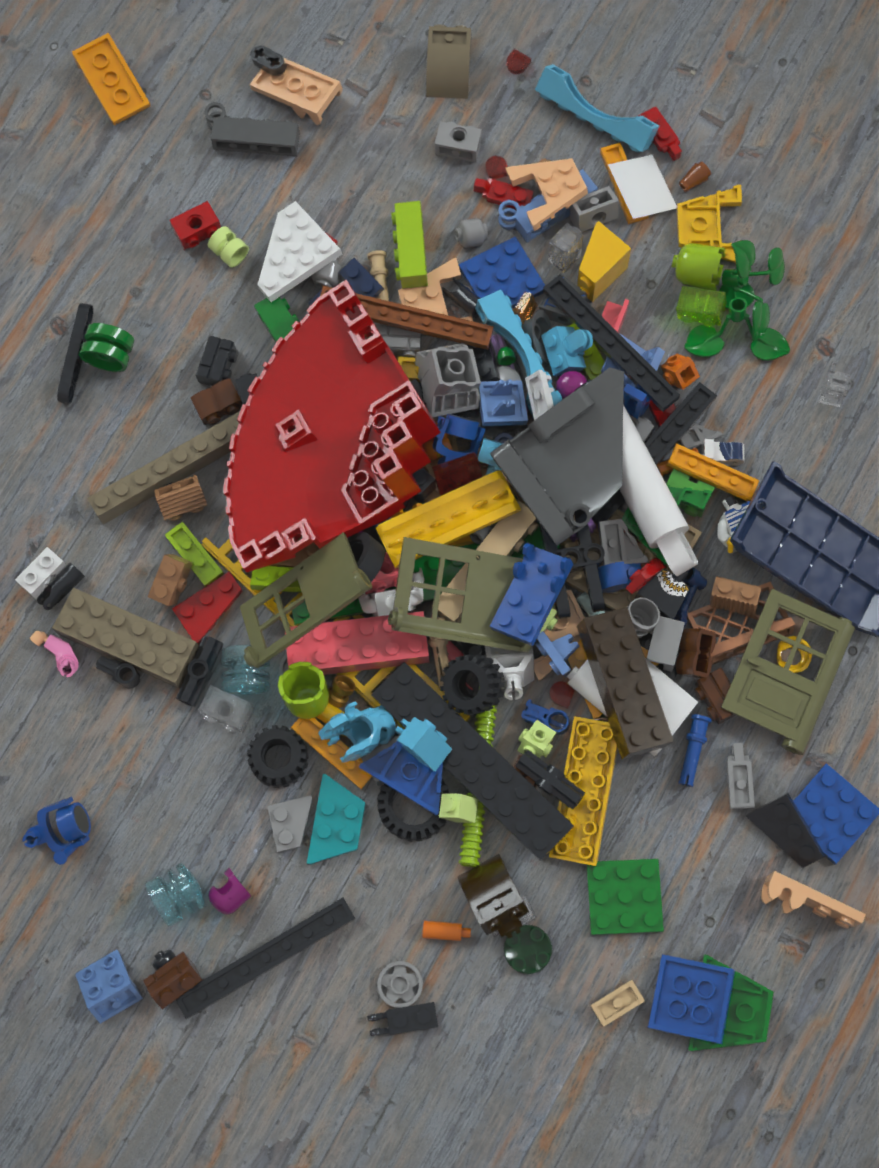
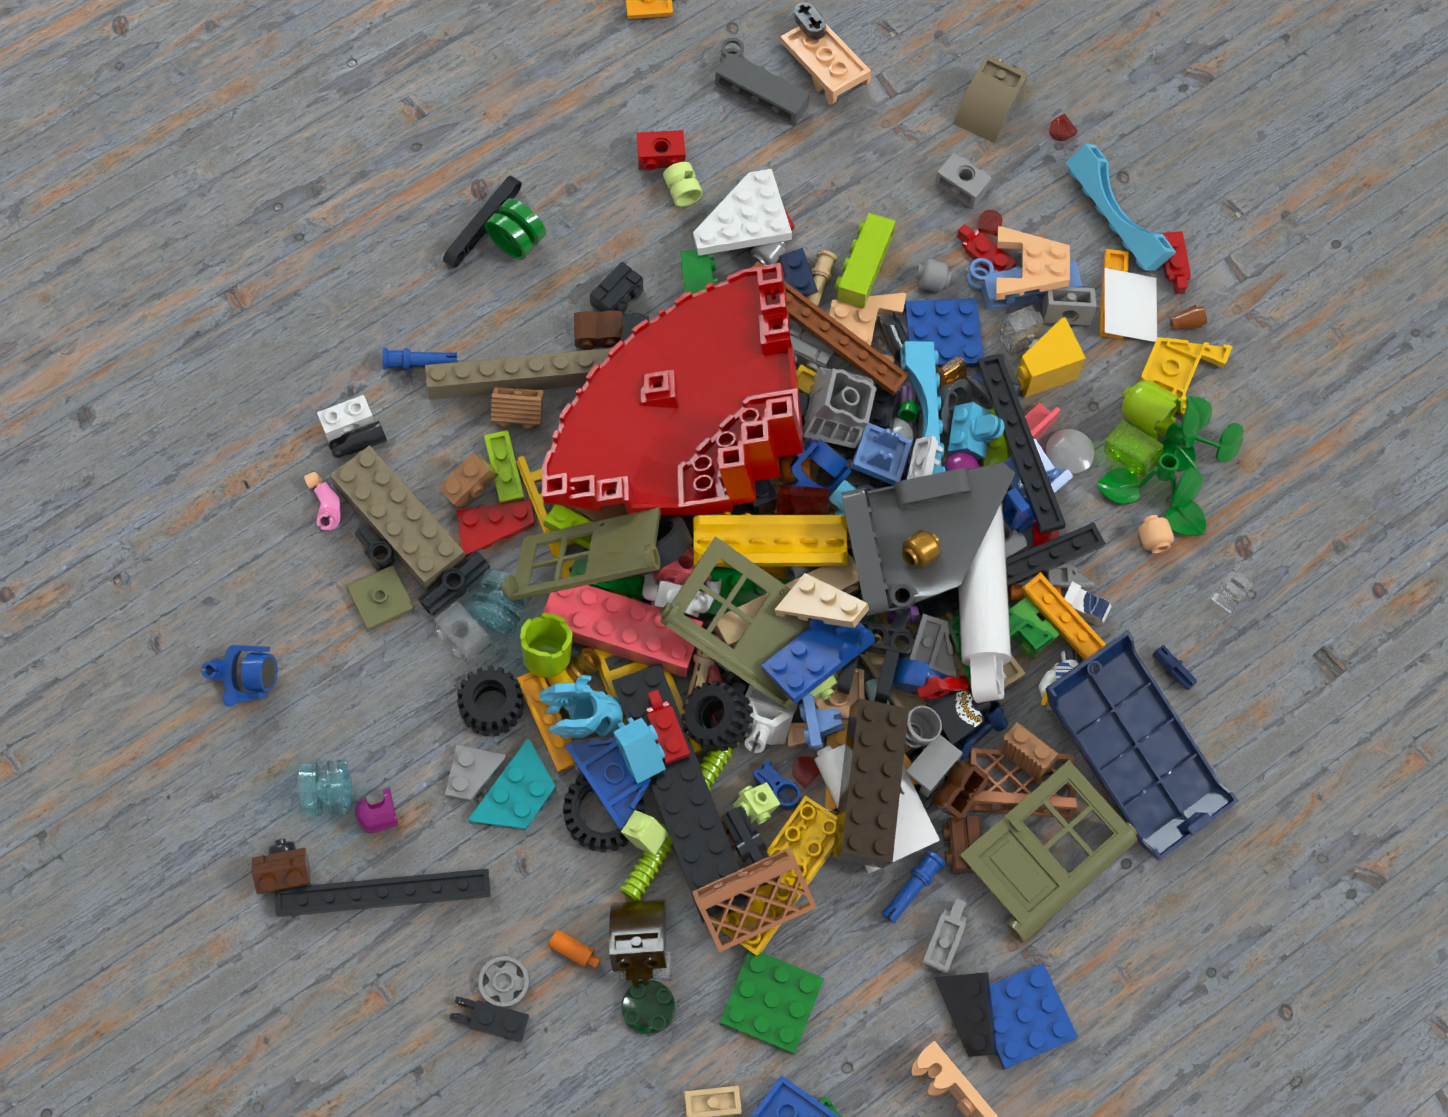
camera: 15 degrees right, 5 degrees down
(69, 498) = (406, 358): none -> blue pin
(107, 987) = (214, 849): medium blue bracket -> none
(144, 711) = (380, 598): none -> olive plate
(430, 708) = (666, 725): none -> red hinge
(516, 551) = (823, 602): none -> tan wing
(548, 825) = (741, 882): none -> nougat fence
(576, 470) = (921, 549): none -> pearl gold head
(650, 330) = (1070, 451): none -> light grey dish
(679, 371) = (1079, 503): orange brick -> none
(752, 369) = (1156, 534): none -> light nougat head
(805, 657) = (1074, 847): yellow piece -> none
(817, 472) = (1174, 667): none -> dark blue axle

